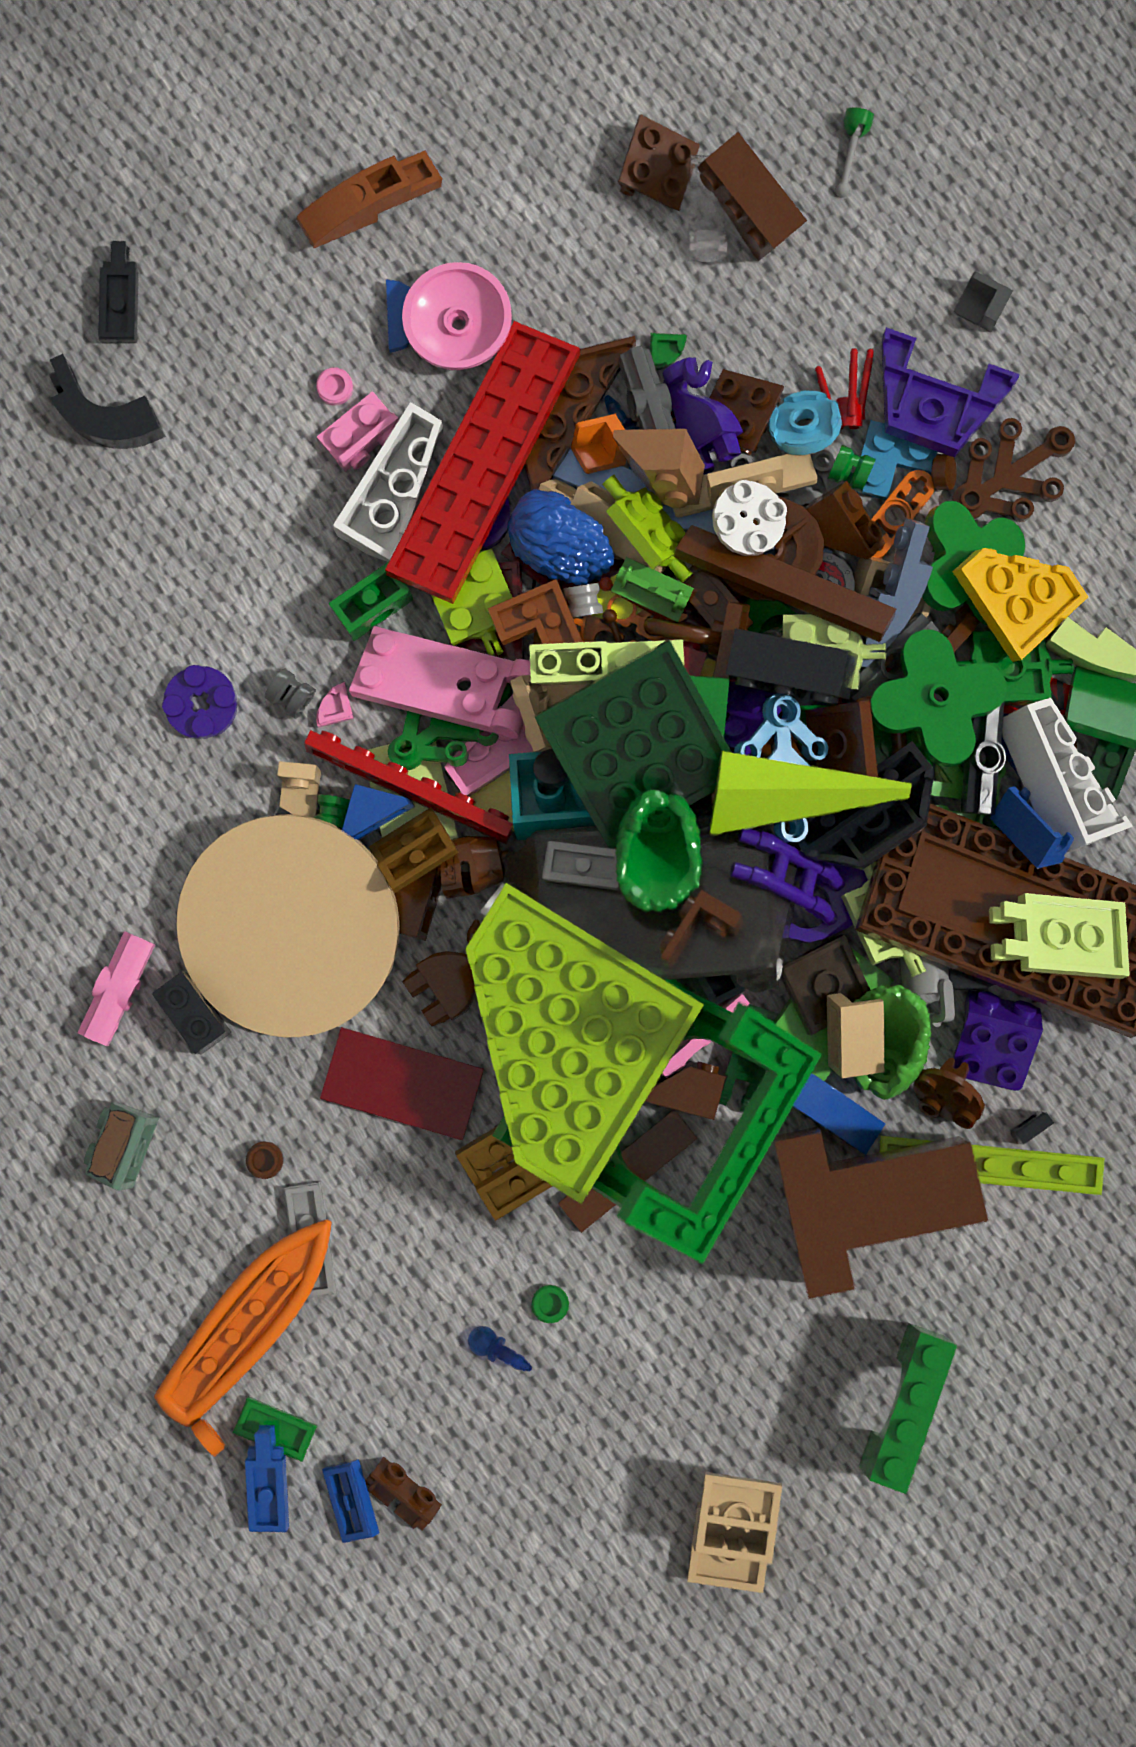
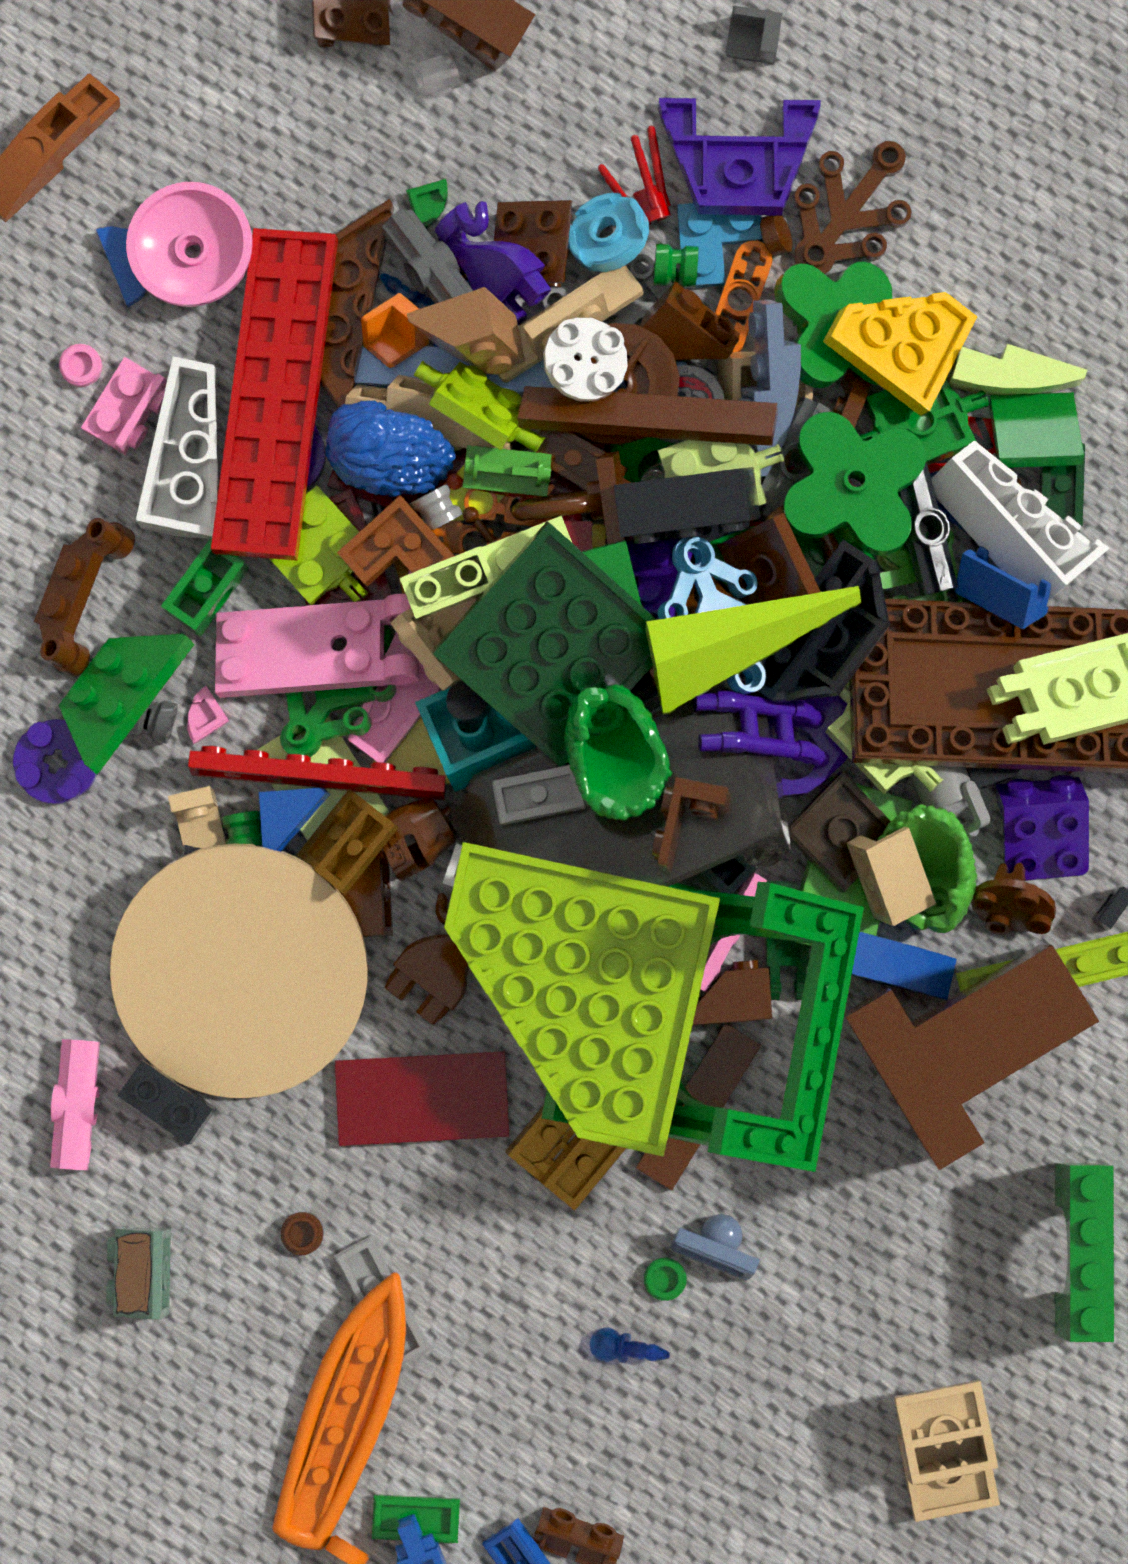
camera: 30 degrees left, 0 degrees up
(261, 565) = (70, 590): none -> reddish brown plate
(269, 662) = (118, 691): none -> green wing
(602, 1292) = (717, 1246): none -> sand blue tile

